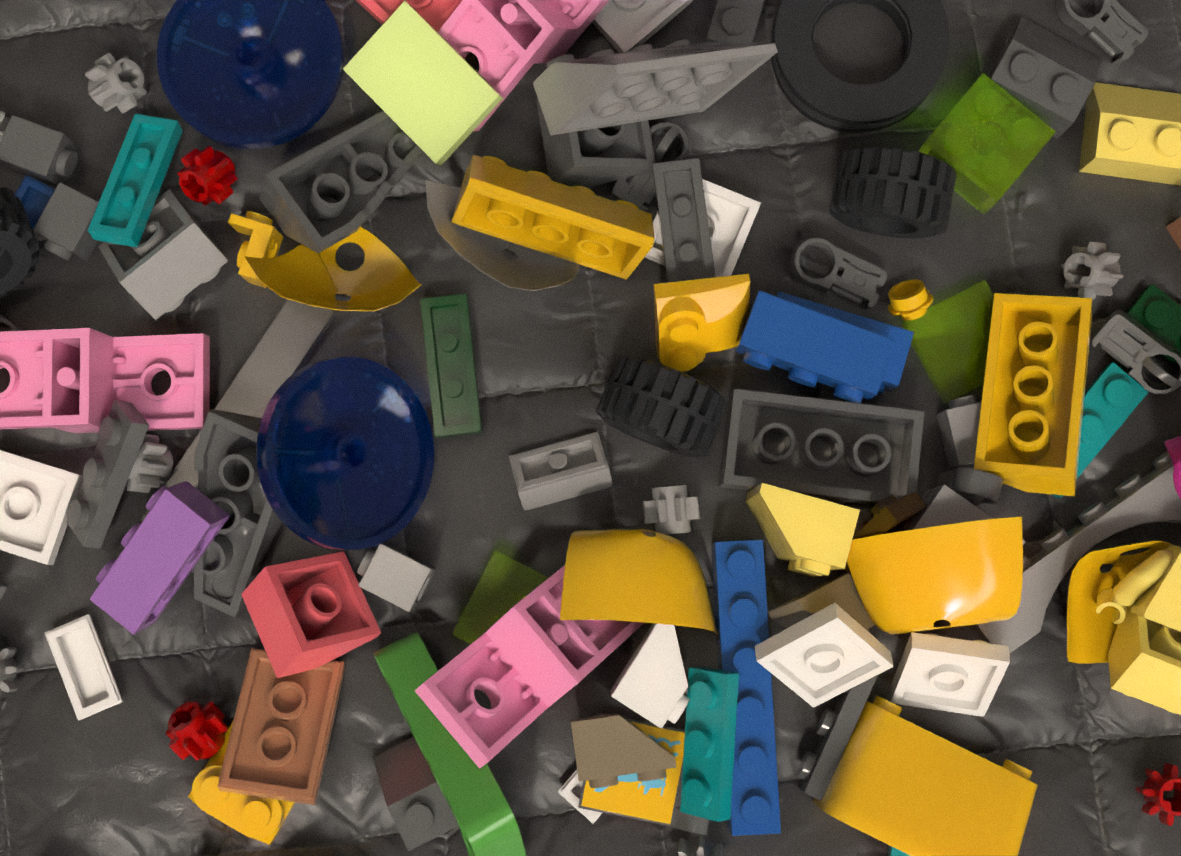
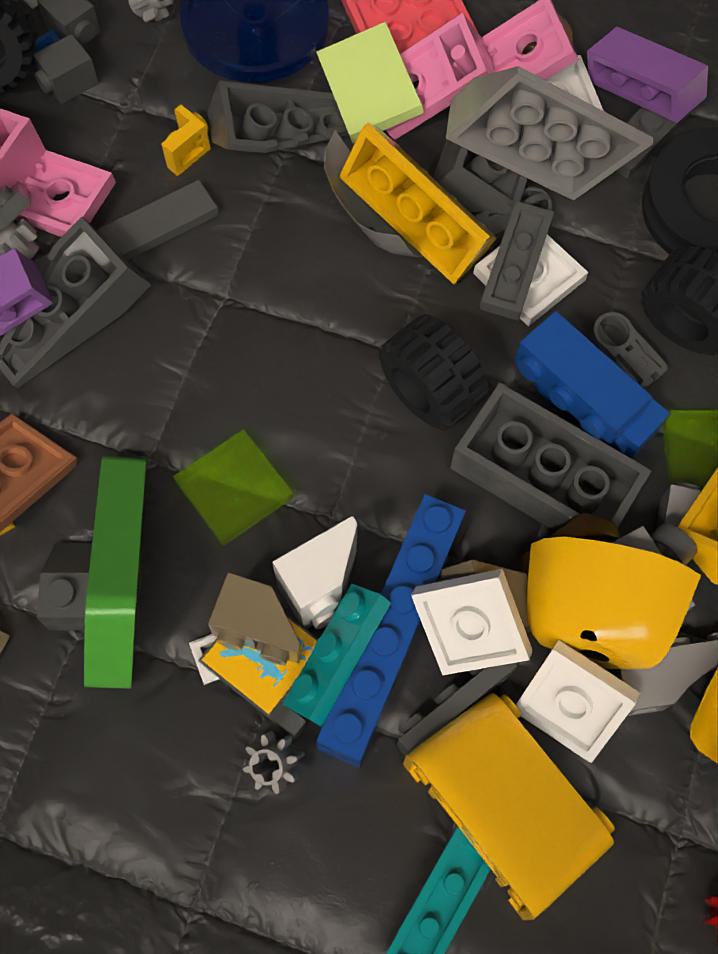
camera: 25 degrees right, 15 degrees down
(135, 180) = (125, 59): teal plate -> none
(169, 259) = (115, 119): light grey slope -> none
(207, 176) = (178, 79): red gear -> none
(309, 612) = (70, 402): coral slope -> none
(317, 278) = (223, 177): yellow piece -> none
(345, 453) = (165, 292): clear blue dish -> none
(394, 576) = (154, 411): light grey brick -> none
(451, 366) = (283, 283): dark green plate -> none
(521, 667) = (227, 506): bright pink bracket -> none
(560, 471) = (327, 399): light grey slope -> none
(634, 579) = (347, 483): yellow piece -> none
(671, 509) = (401, 462): light grey gear -> none
(699, 318) = (498, 318): yellow slope -> none
(803, 528) = (505, 507): light yellow slope -> none
(909, 299) = (677, 396): yellow plate -> none

